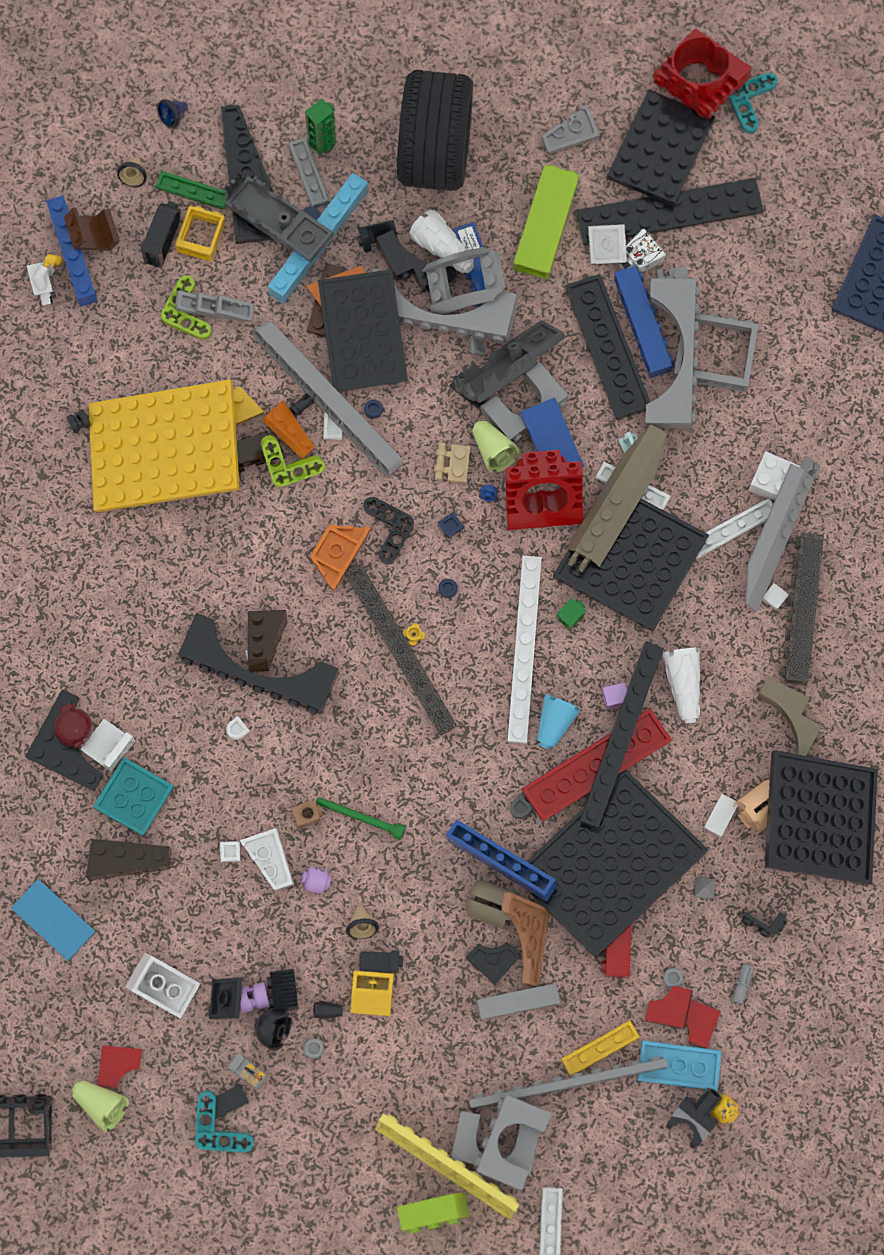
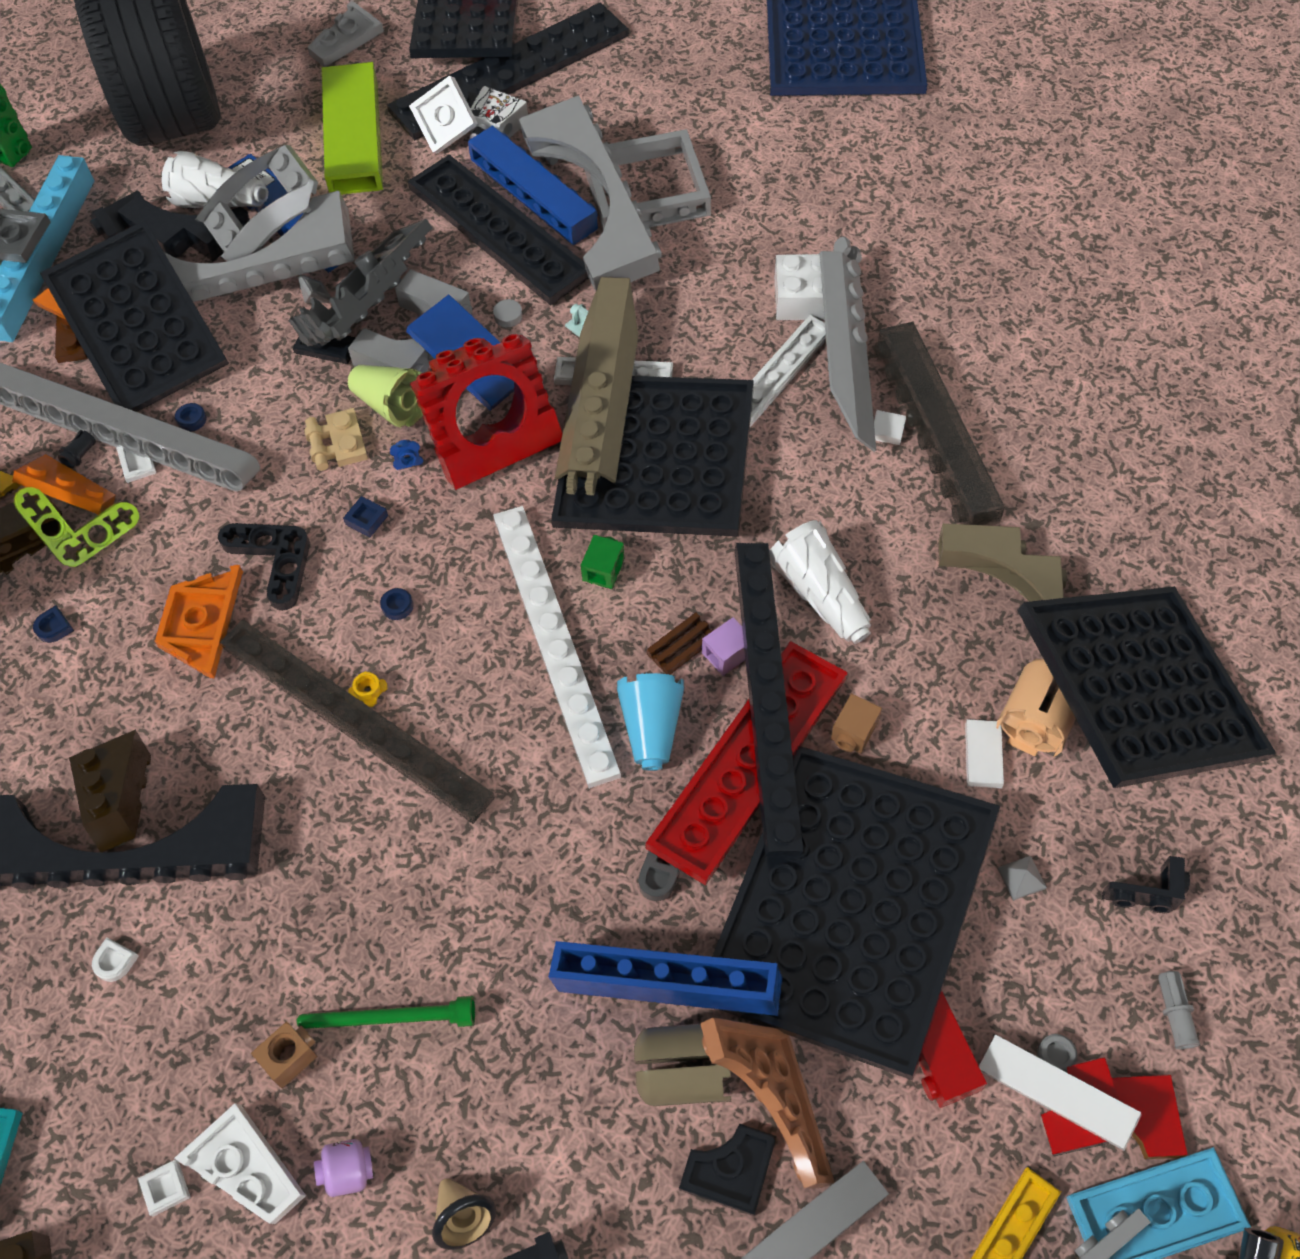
camera: 20 degrees left, 15 degrees down
(256, 519) = (51, 625): none -> dark blue tile
(587, 414) = (507, 313): none -> light grey tile
(588, 675) = (652, 651): none -> reddish brown tile
(661, 770) = (855, 724): none -> medium nougat brick
(661, 994) = (1060, 1092): none -> white tile

